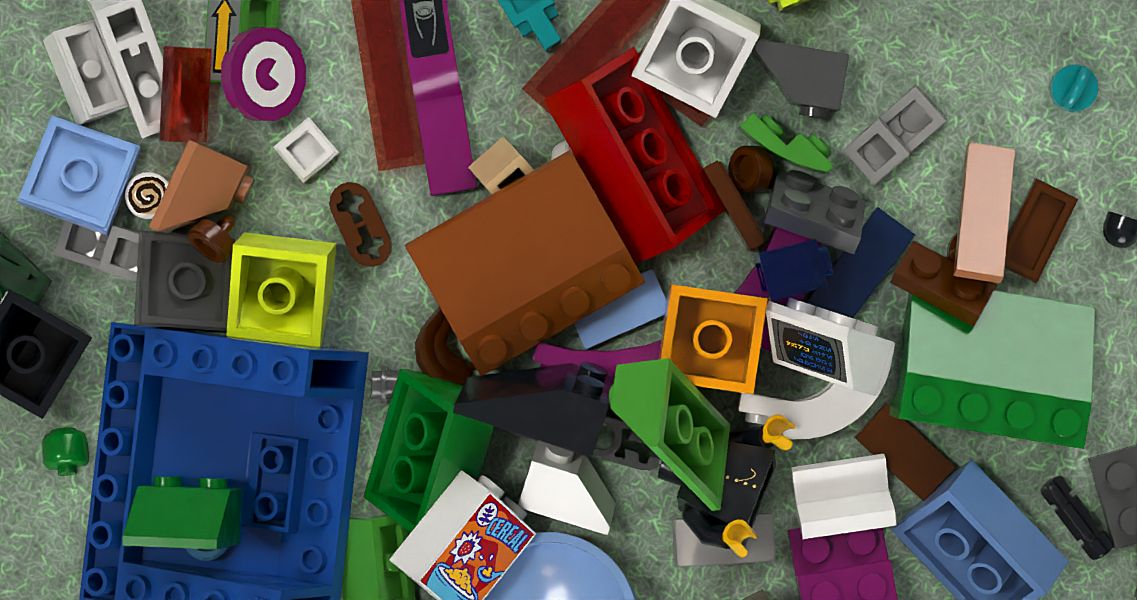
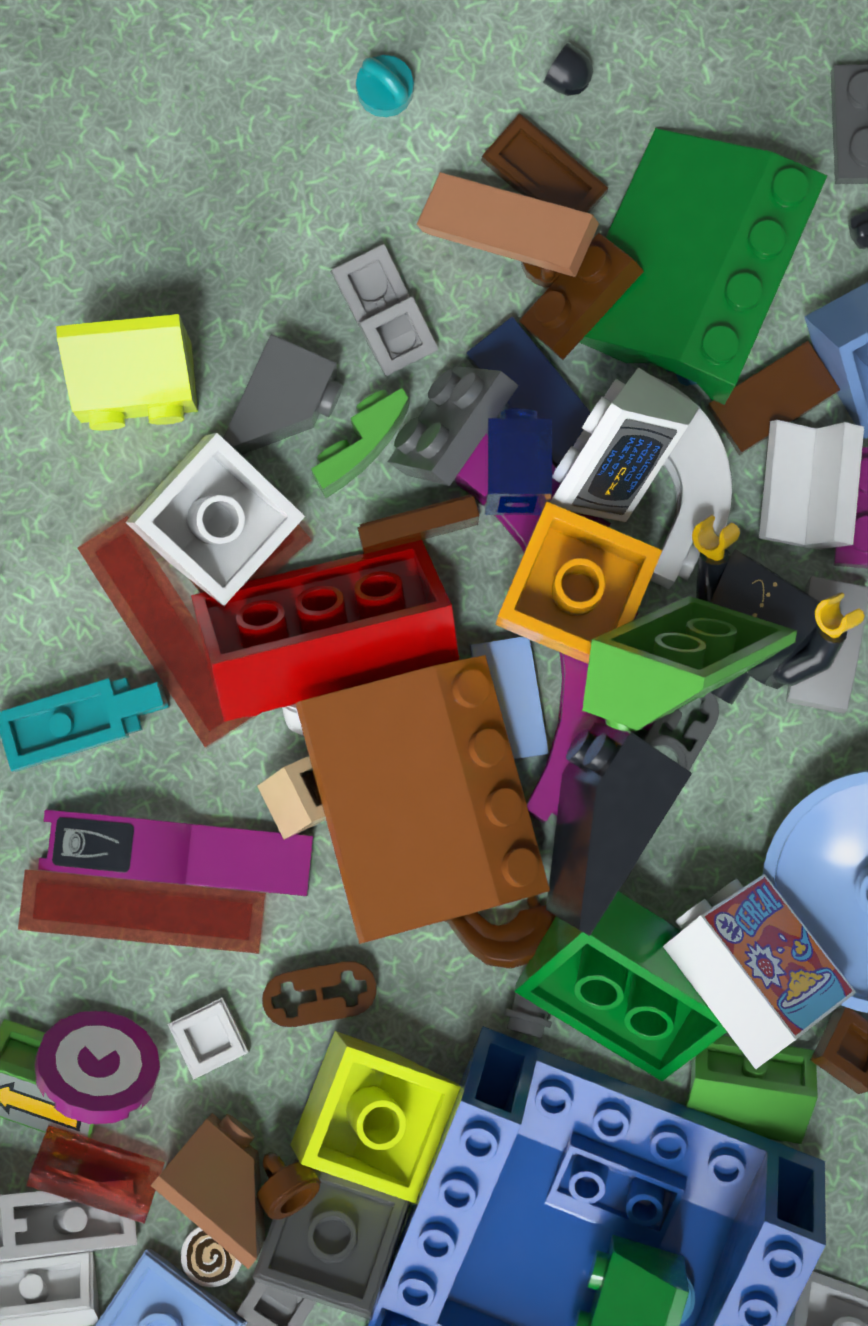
camera: 80 degrees left, 5 degrees down
(567, 489) = (718, 822): white slope -> none
(751, 169) = (379, 491): reddish brown tile -> none

